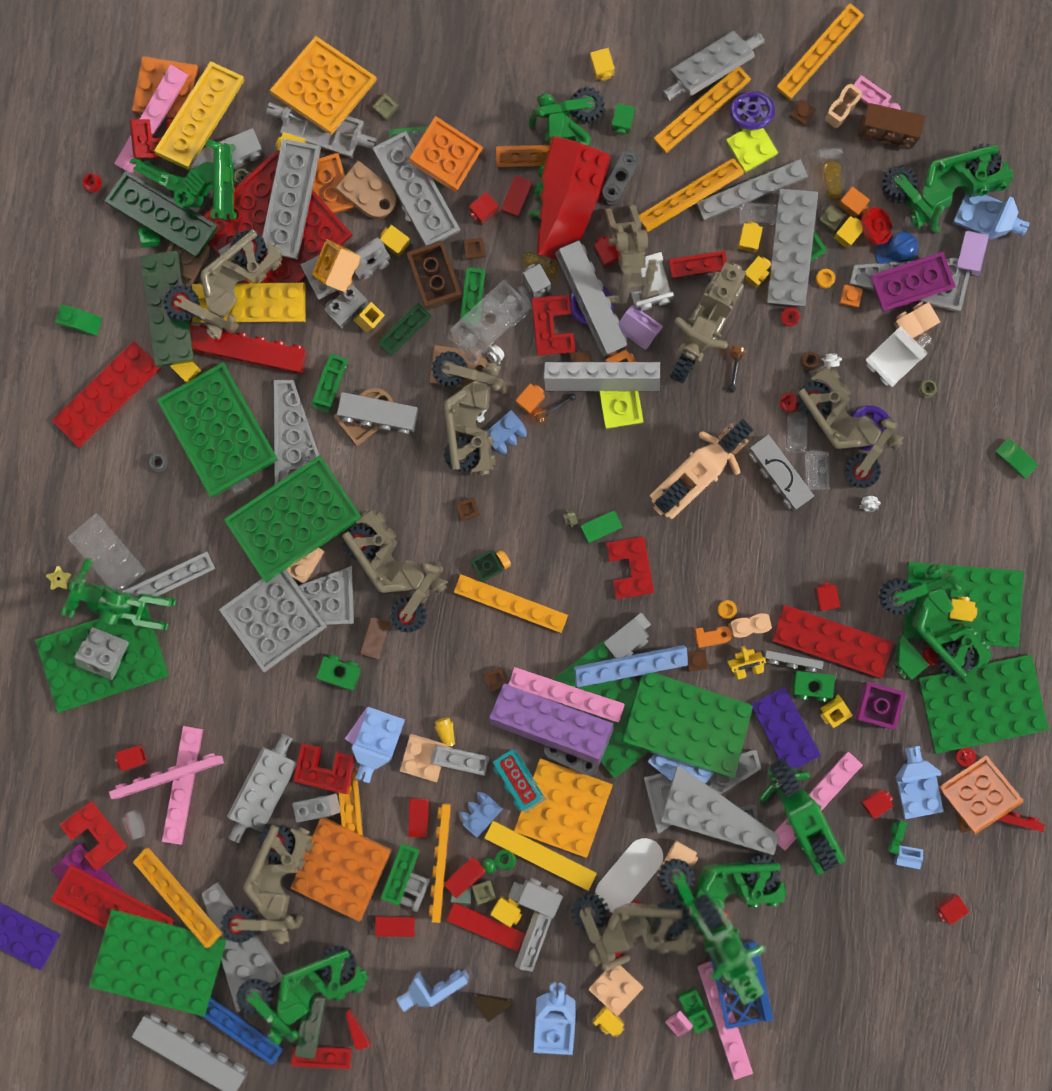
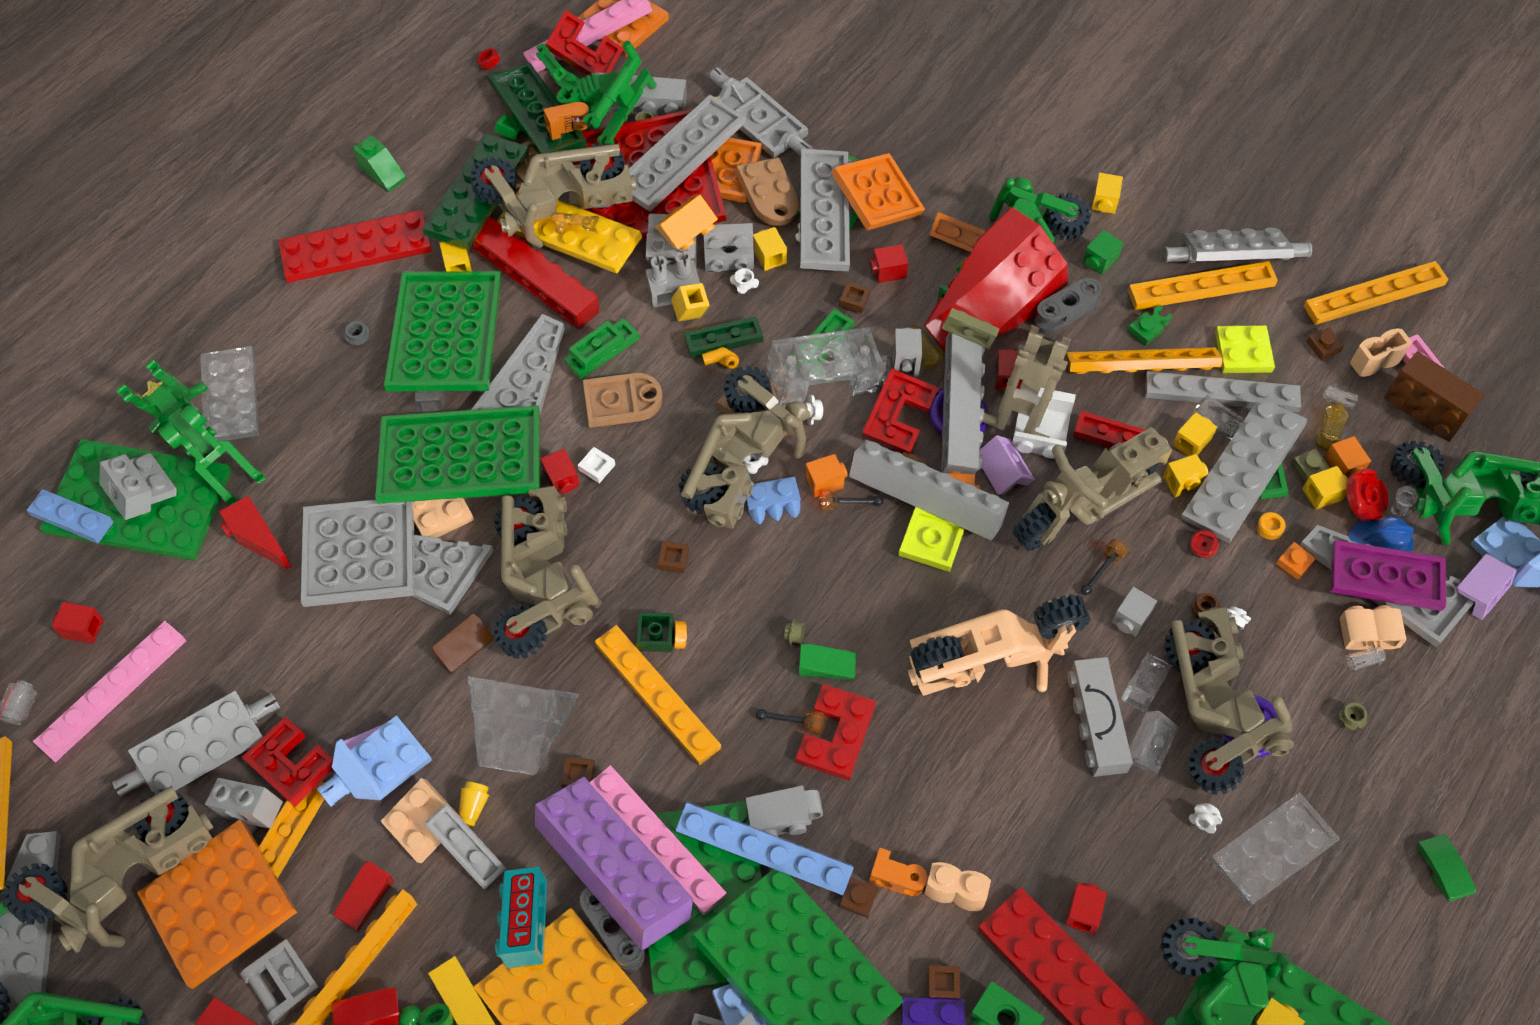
camera: 30 degrees right, 25 degrees down
(73, 696) = (70, 516): none -> medium blue plate
(173, 773) = (97, 662): bright pink plate -> none
(174, 577) = (278, 453): light grey plate -> none
(190, 638) = (251, 531): none -> red slope
(193, 217) = (565, 118): none -> orange leg
(199, 115) = (651, 42): yellow plate -> none
(246, 302) = (568, 219): none -> clear yellow piece
(323, 85) = (786, 79): light orange plate -> none
(327, 672) = (395, 673): green brick -> none
(361, 491) = (560, 471): none -> red brick
(377, 412) = (635, 396): light grey brick -> none
(380, 472) = (596, 465): none -> white plate
(385, 107) = (840, 131): olive tile -> none
(392, 280) = (744, 275): none -> white plate
(400, 874) = (284, 951): green plate -> none
(413, 344) = (723, 356): none -> light orange arm
(434, 275) = (791, 297): reddish brown brick -> none
(441, 669) = (516, 723): none -> clear wedge
(481, 814) = (445, 940): medium blue plate -> none
(516, 196) = (934, 272): red tile -> none
(566, 248) = (970, 328): none -> olive plate
(613, 571) = (812, 722): none -> hinge
(680, 163) = (1149, 327): none -> green plate
(727, 609) = (936, 850): light orange tile -> none
(745, 660) = (940, 940): yellow hips -> none
(750, 124) = (1263, 312): dark purple plate -> none
(769, 391) = (1134, 612): none -> light grey brick
(769, 683) = (944, 982): none -> reddish brown plate
(788, 403) = (1153, 640): red tile -> none
(793, 661) = (993, 967): light grey plate -> none
(895, 357) = (1327, 653): white panel -> none
(904, 213) = (1405, 498): none -> clear pin
(916, 501) = (1274, 849): none -> clear plate

